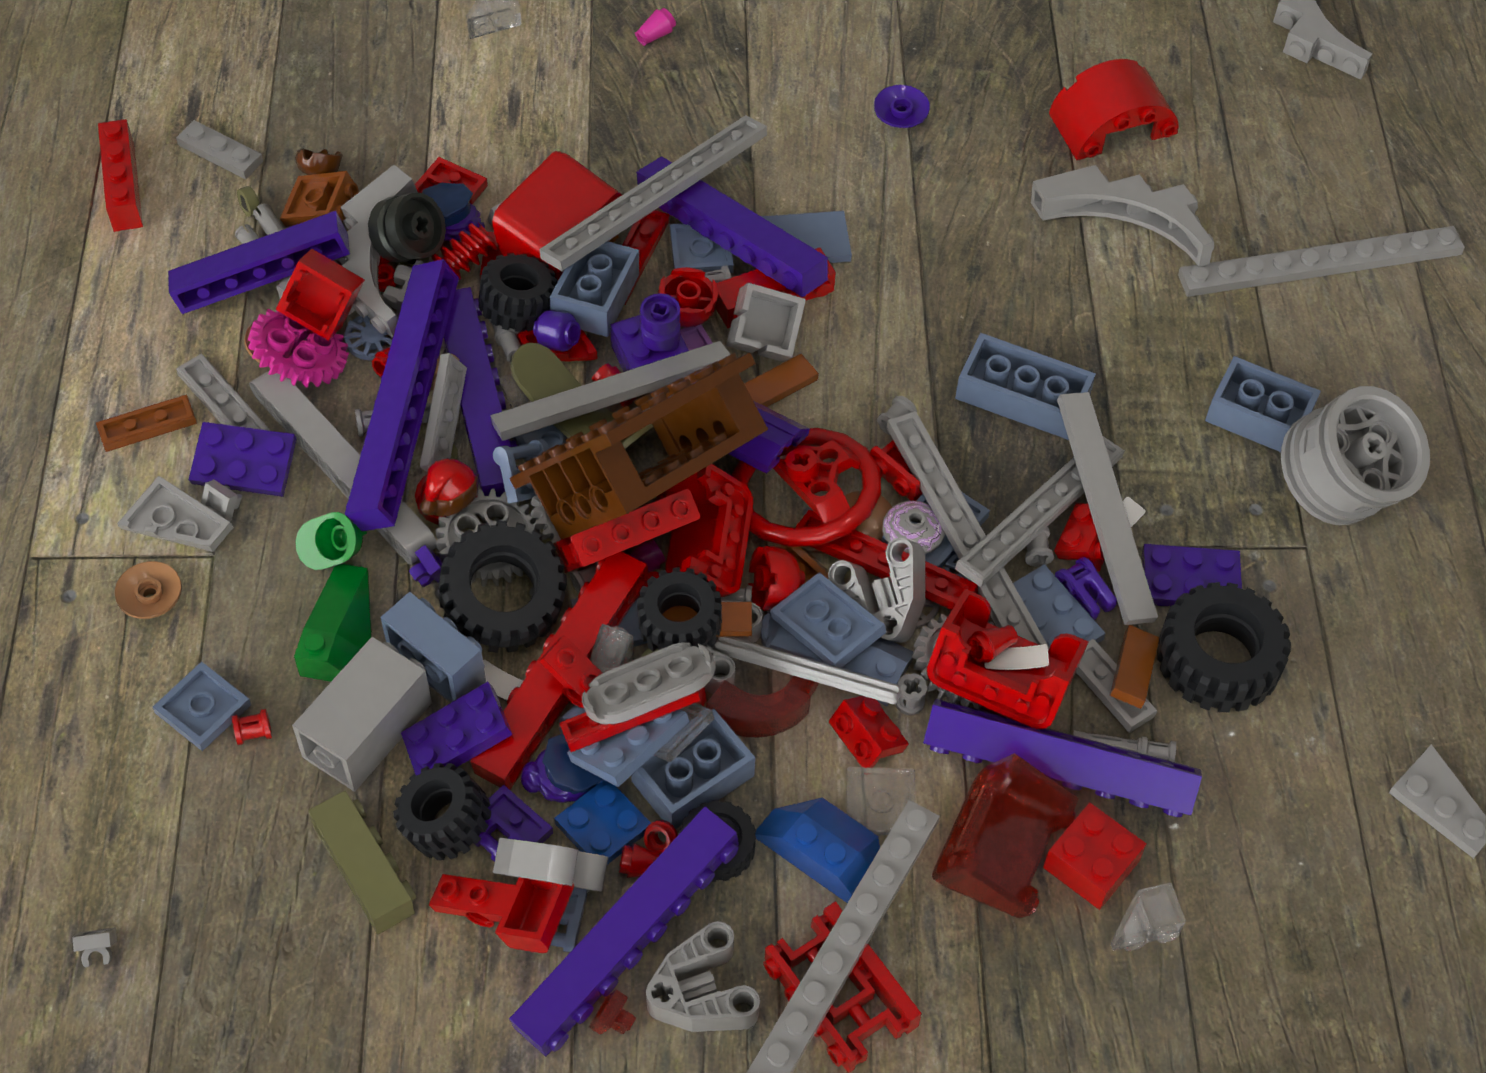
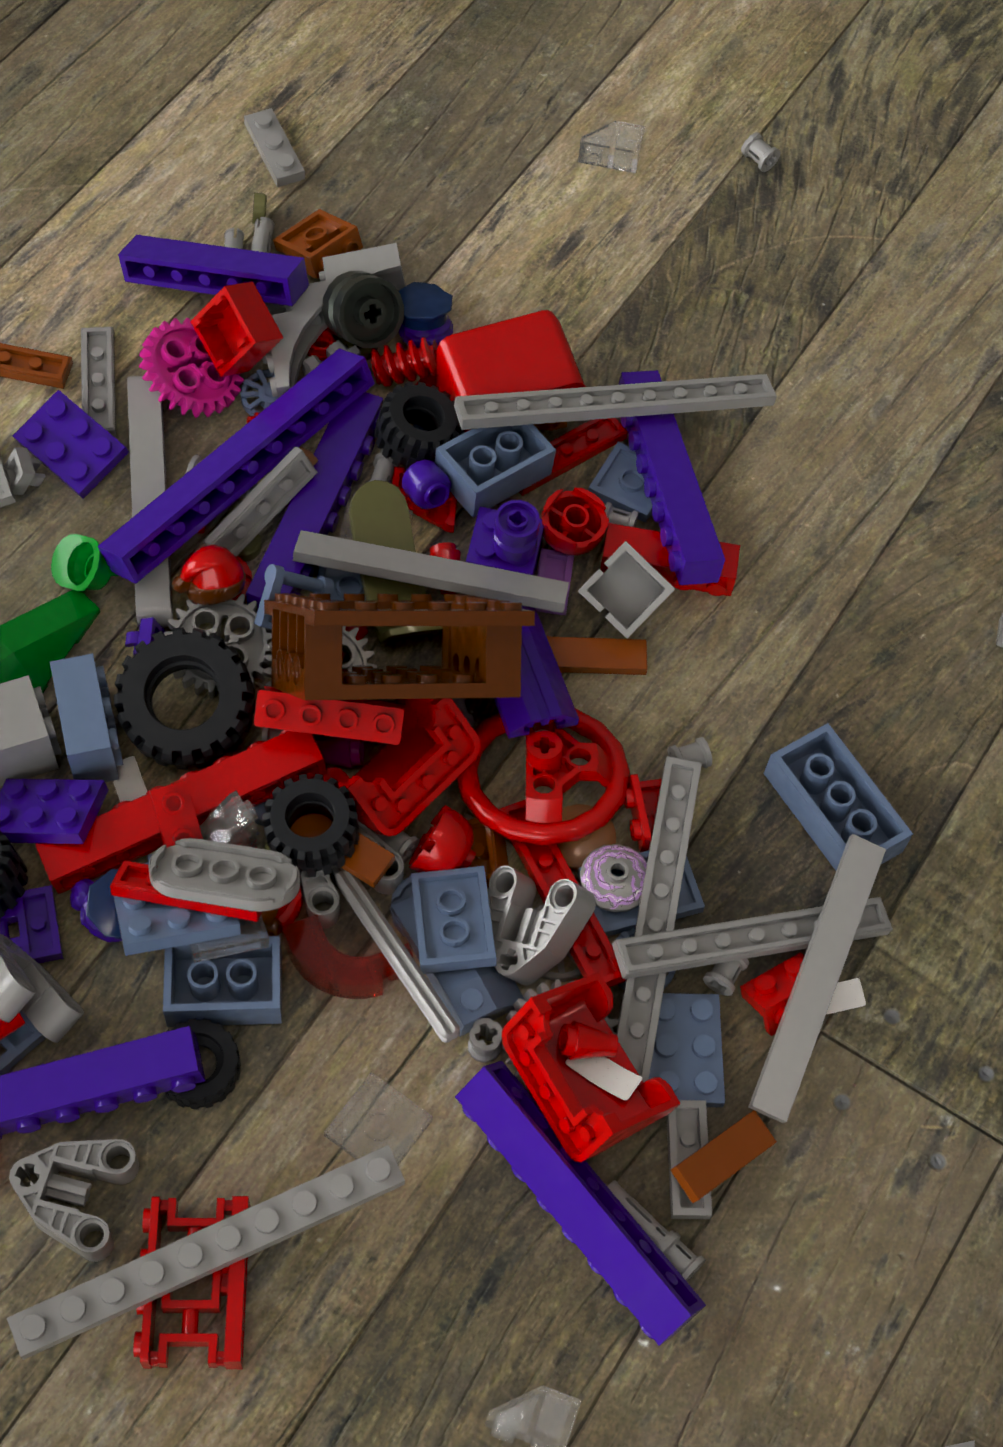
camera: 30 degrees right, 5 degrees up
(120, 175) = (167, 125): red brick -> none
(317, 163) = (343, 205): reddish brown hair -> none
(448, 172) = (453, 280): red wing -> none
(602, 821) = (111, 983): blue plate -> none
(636, 860) = (109, 1032): red cone -> none
(651, 837) = (147, 1023): red plate -> none
(656, 26) = (757, 241): dark pink cone -> none
(818, 230) = (757, 529): sand blue tile -> none
(821, 843) = (289, 1128): blue wedge -> none
(867, 730) = (416, 1052): red bracket -> none
(901, 106) = (939, 440): dark purple dish -> none
(1004, 835) = (460, 1242): clear red windscreen -> none
(1084, 582) = (745, 1031): dark purple piece -> none
(1094, 855) = (533, 1320): red brick -> none
(1178, 569) = (861, 1102): dark purple plate -> none
(1233, 613) = (857, 1157): black tyre -> none

